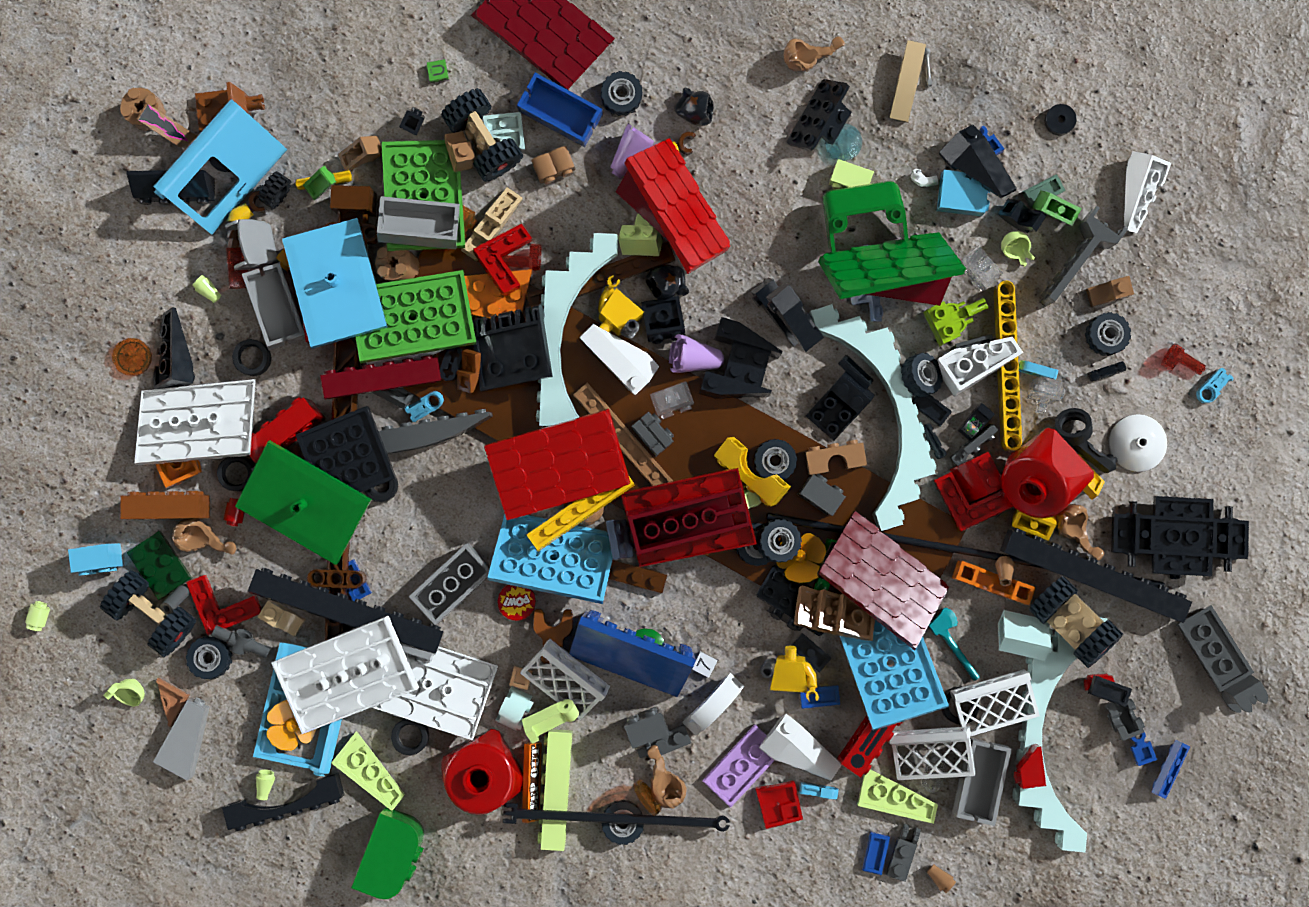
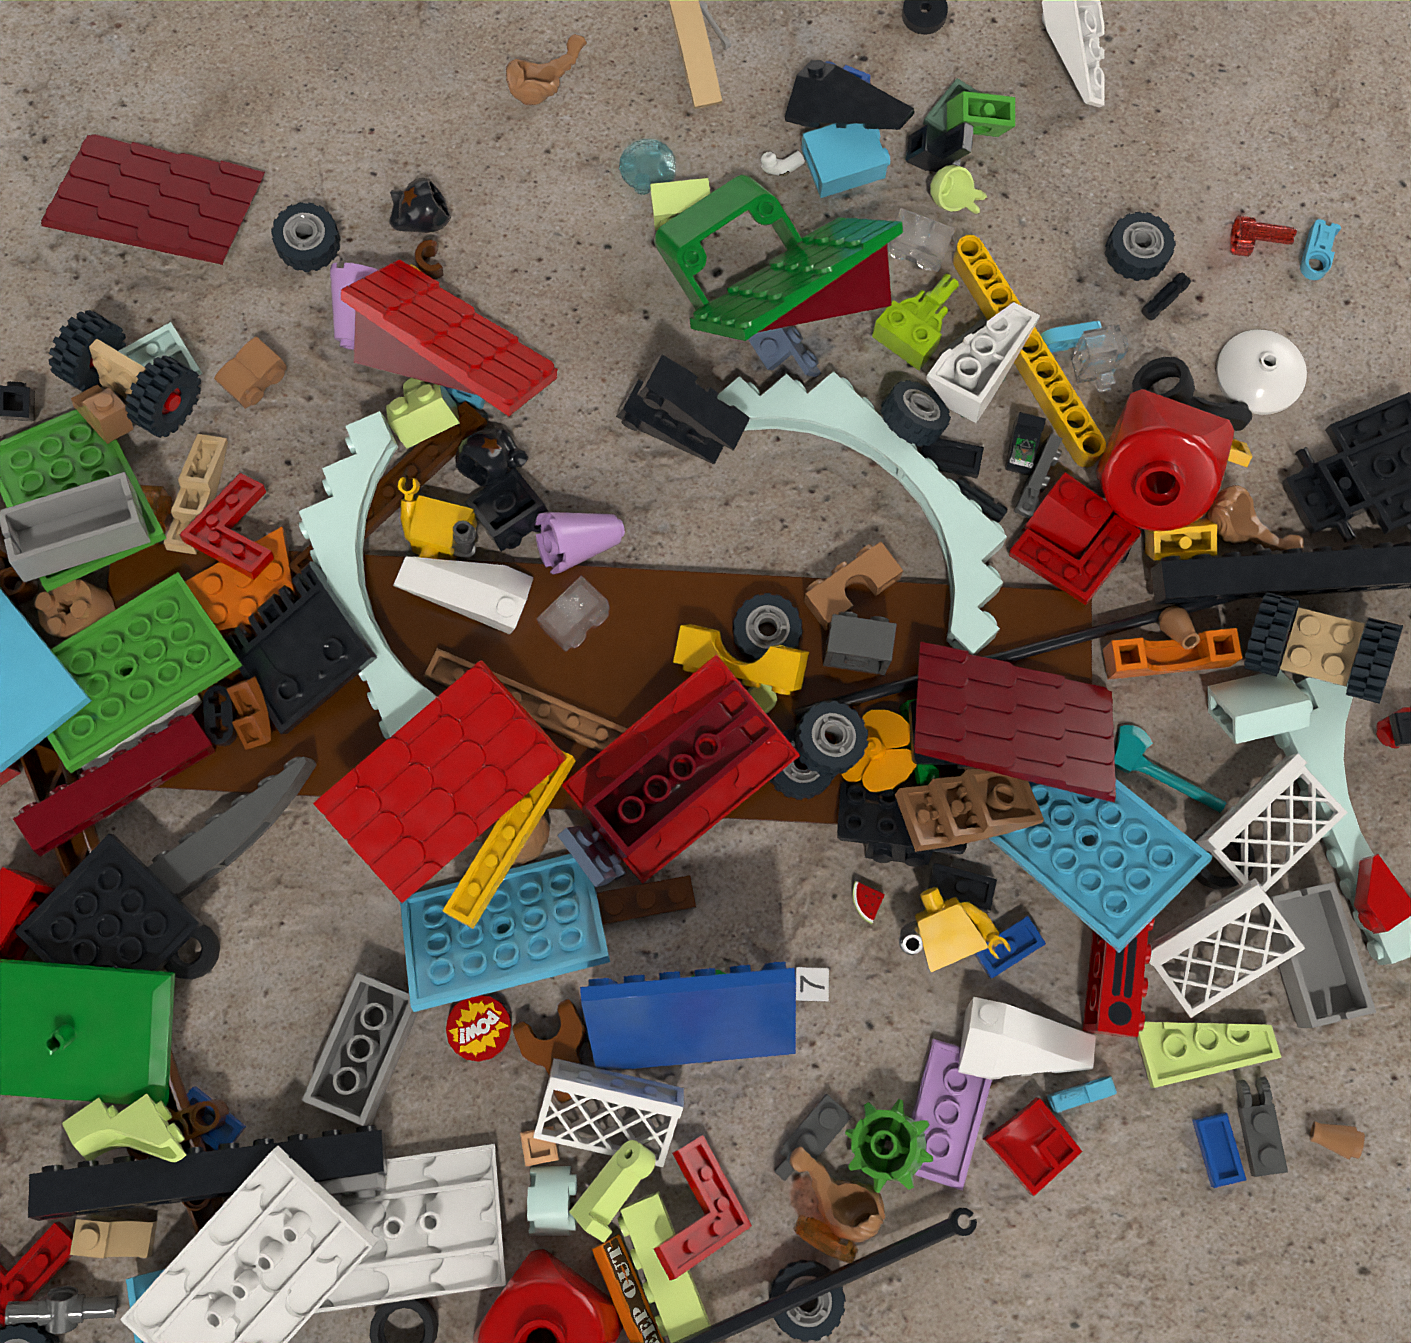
camera: 25 degrees left, 10 degrees down
(319, 569) = (138, 1126): none -> yellowish green arch
(398, 397) = (155, 803): dark grey plate -> none
(423, 406) = (205, 799): medium azure piece -> none
(437, 71) = (28, 324): bright green tile -> none
(532, 261) = (280, 516): clear red piece -> none
(559, 109) = (225, 293): blue piece -> none
(600, 747) = (722, 1211): none -> plate
(646, 727) = (770, 1126): dark grey brick -> none
(652, 433) = (569, 675): dark grey brick -> none
(693, 771) = (879, 1162): none -> bright green brick
(713, 705) = (856, 1039): white arch -> none
(744, 366) = (656, 516): black wedge -> none
(755, 635) = (866, 901): none -> red tile
(822, 117) = (603, 141): black bracket -> none
(839, 406) = (821, 512): black slope -> none
(856, 371) = (820, 454): black tile -> none
(938, 780) = (1250, 988): clear beam -> none
(1095, 235) = (1052, 126): dark grey hinge -> none
(1110, 291) = (1112, 190): medium nougat arch -> none

